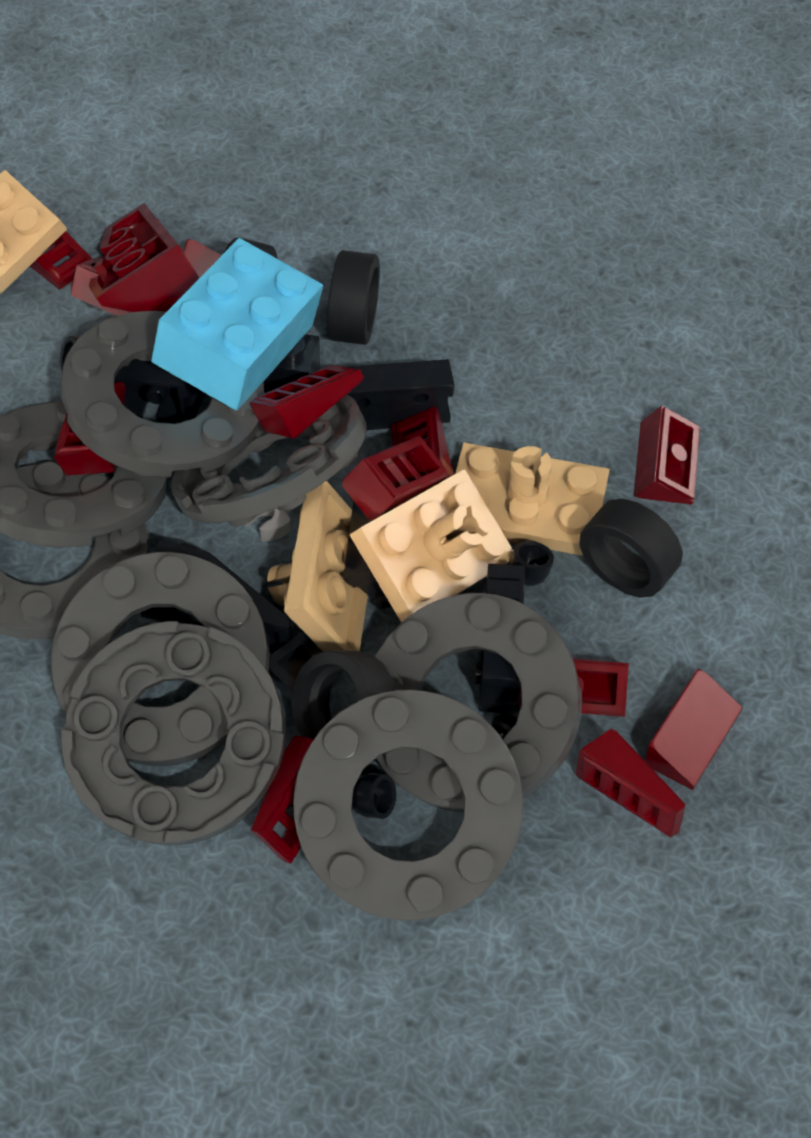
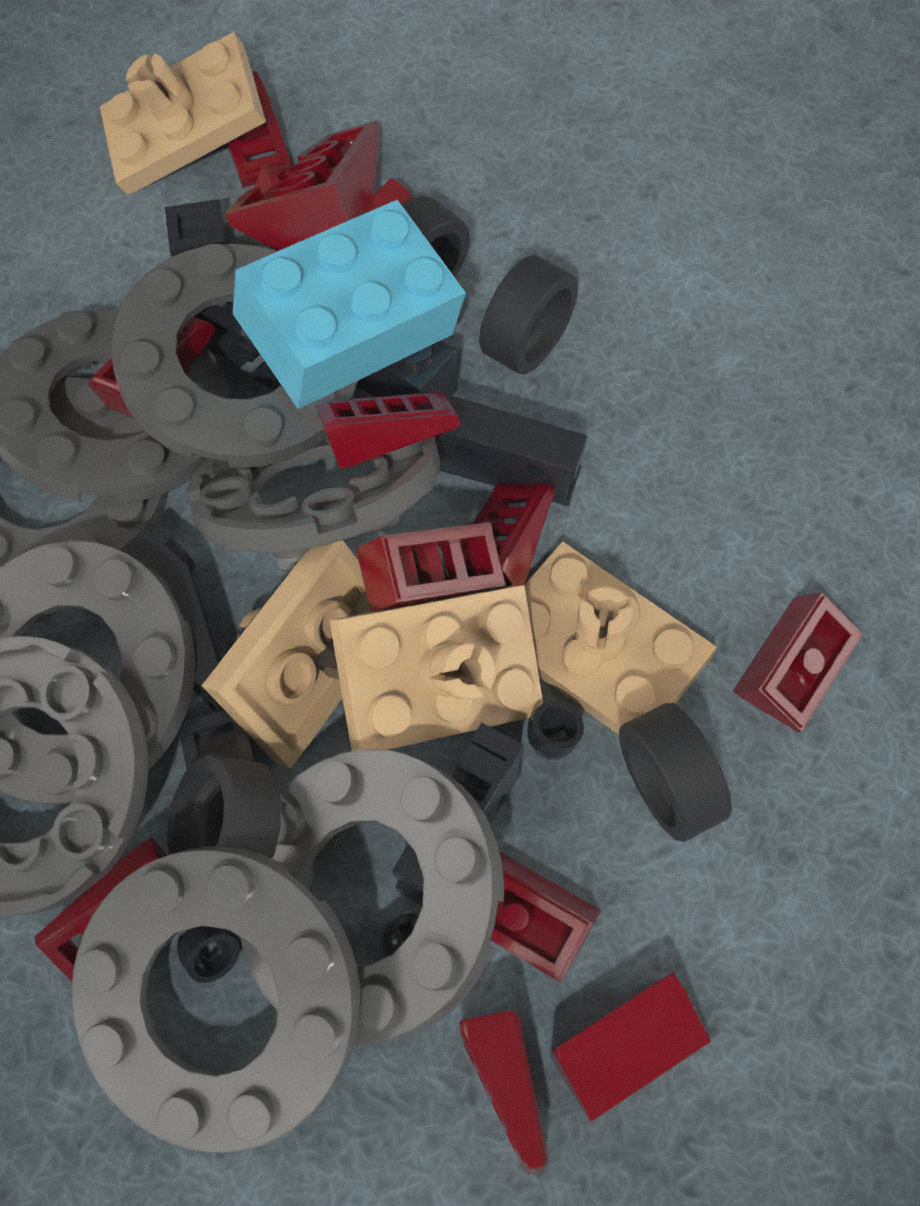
camera: 30 degrees right, 10 degrees up
(47, 329) = (195, 225): none -> black plate

